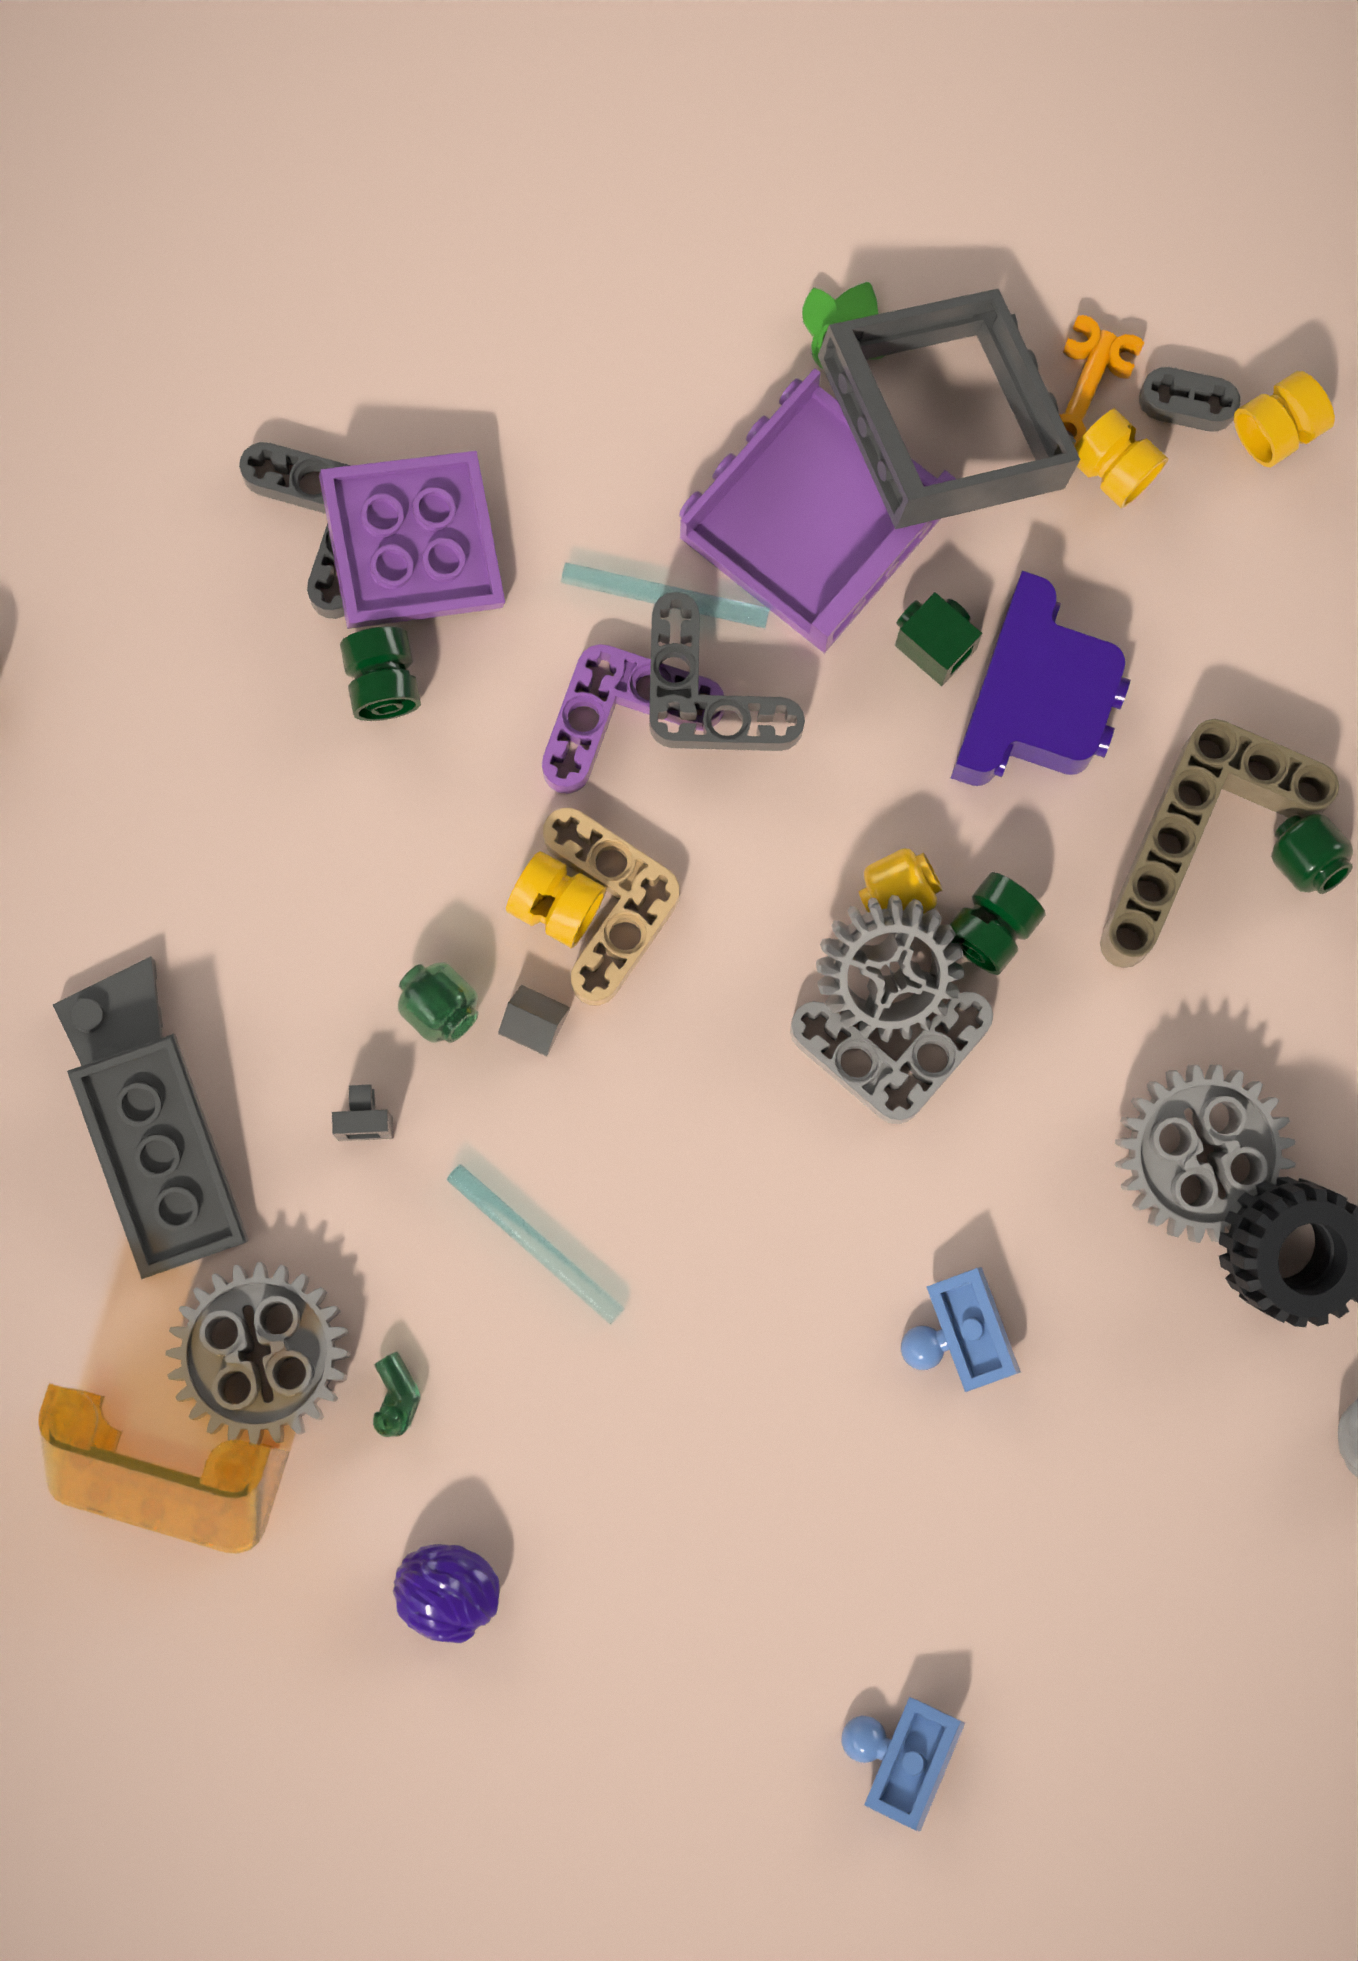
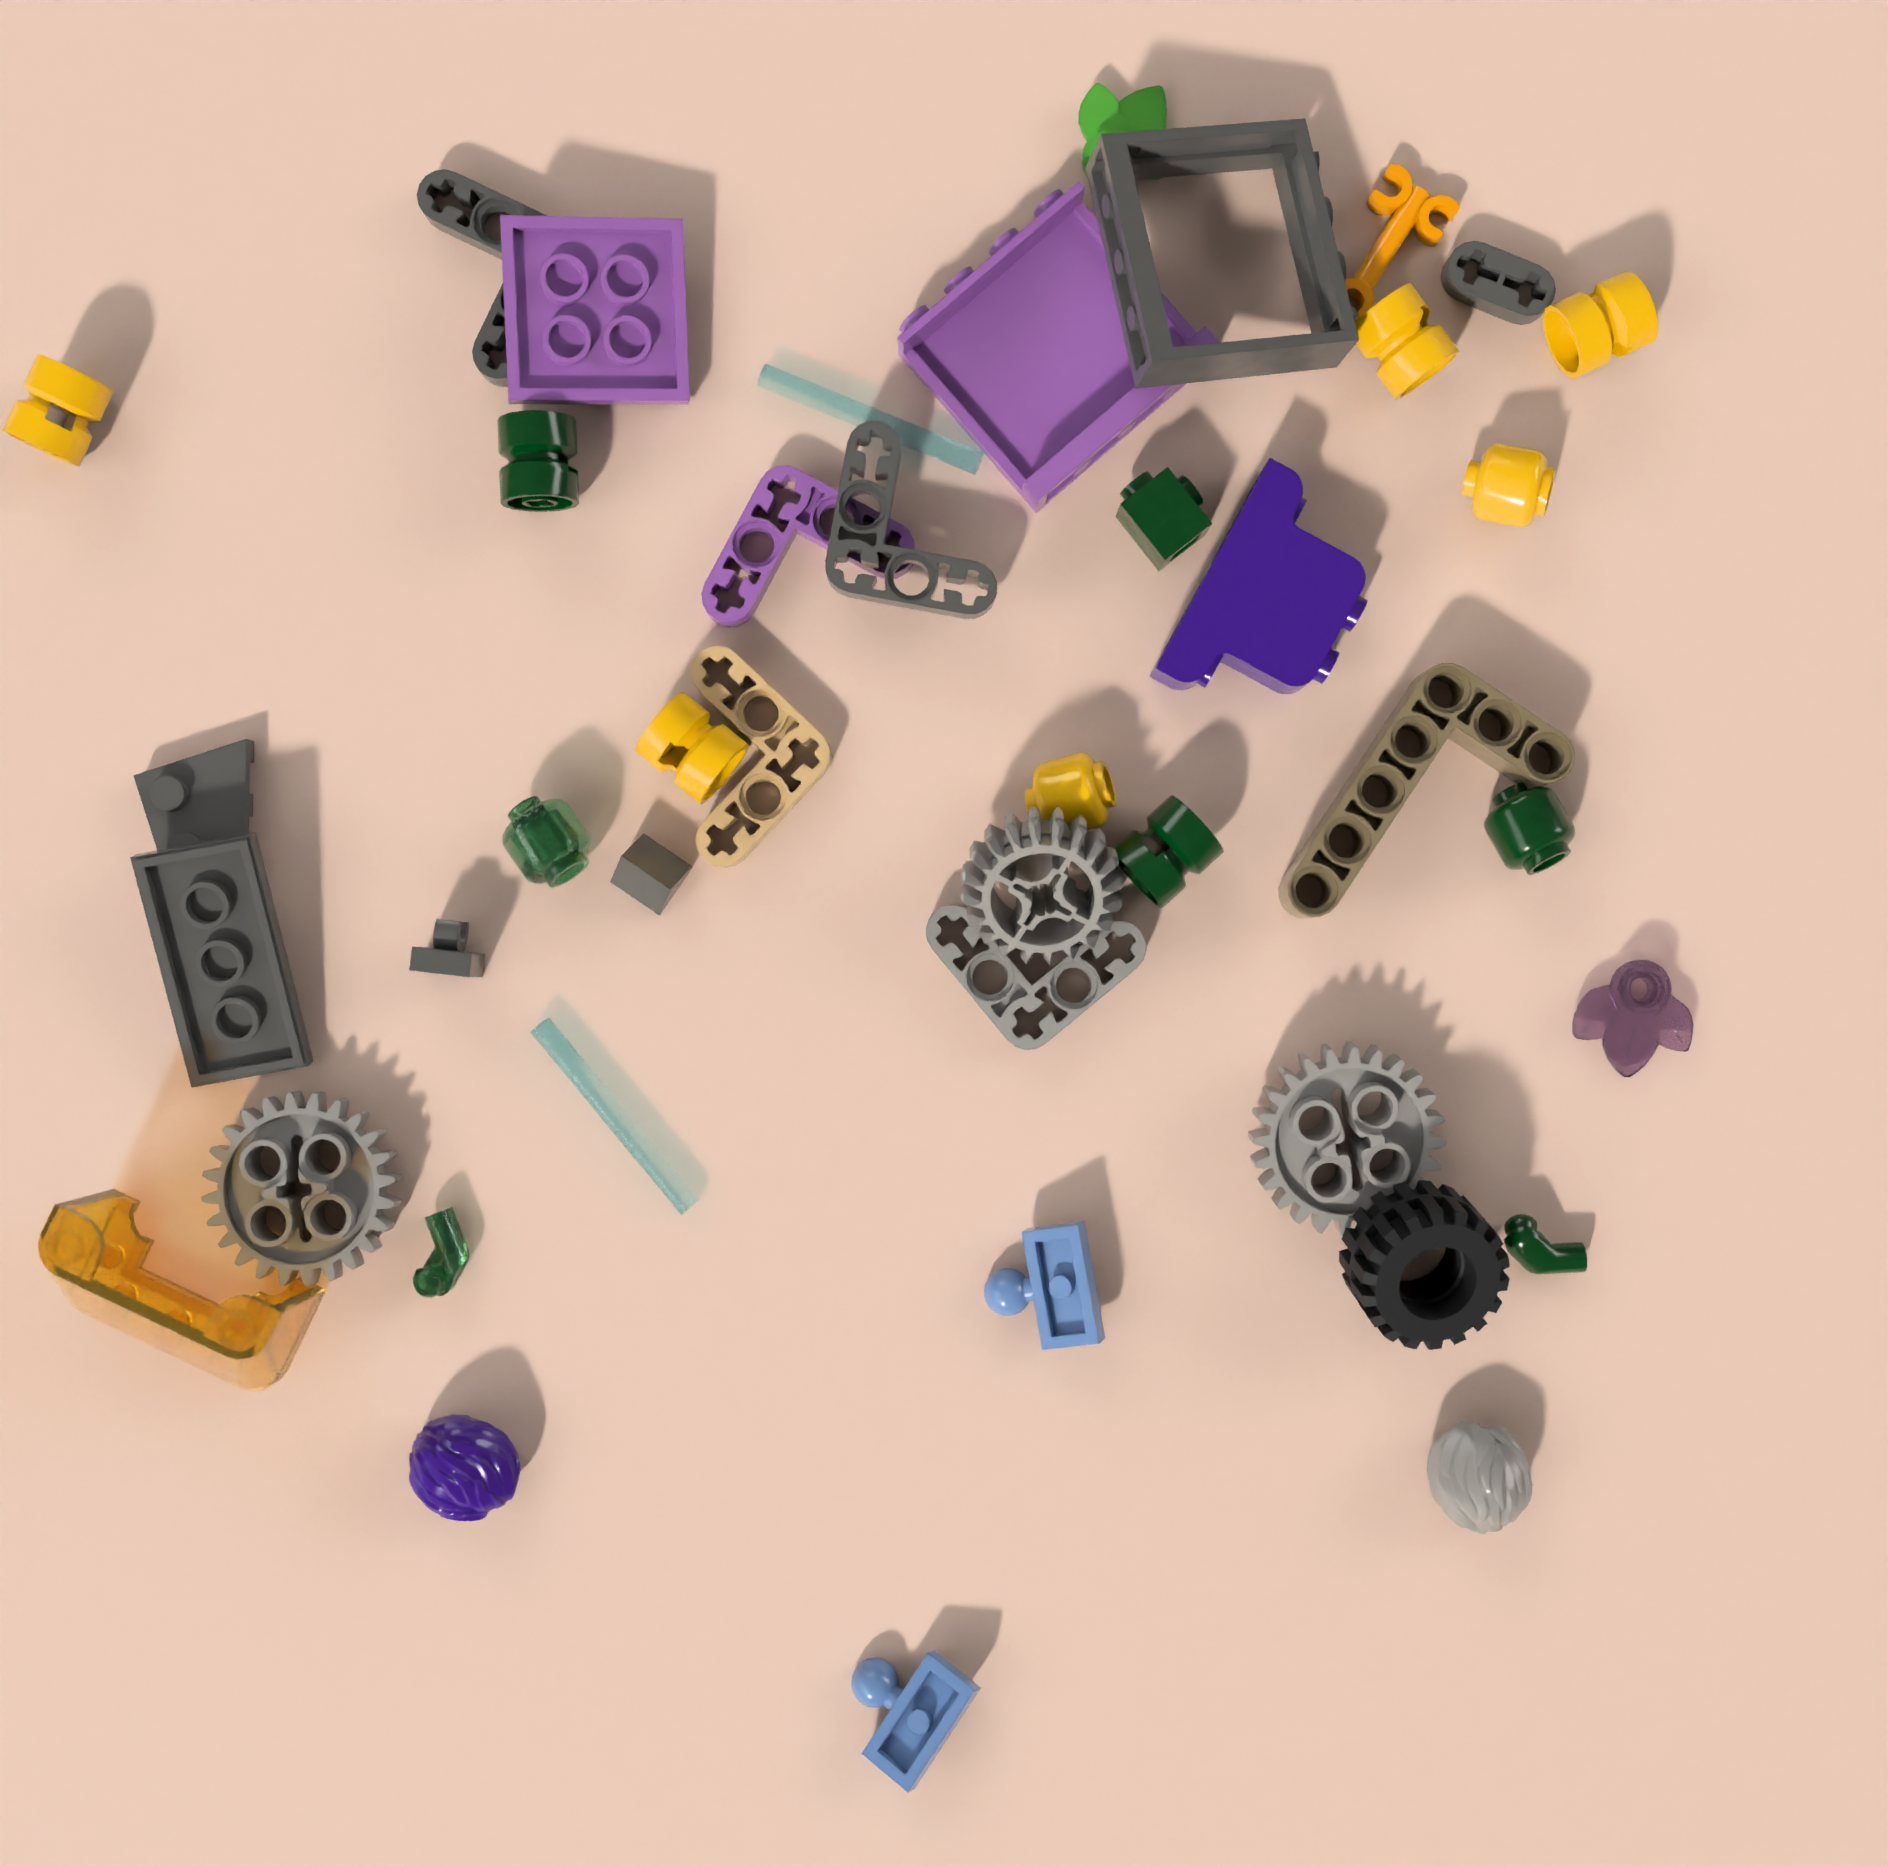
camera: 10 degrees right, 10 degrees up
(1234, 564) = (1509, 485): none -> yellow head

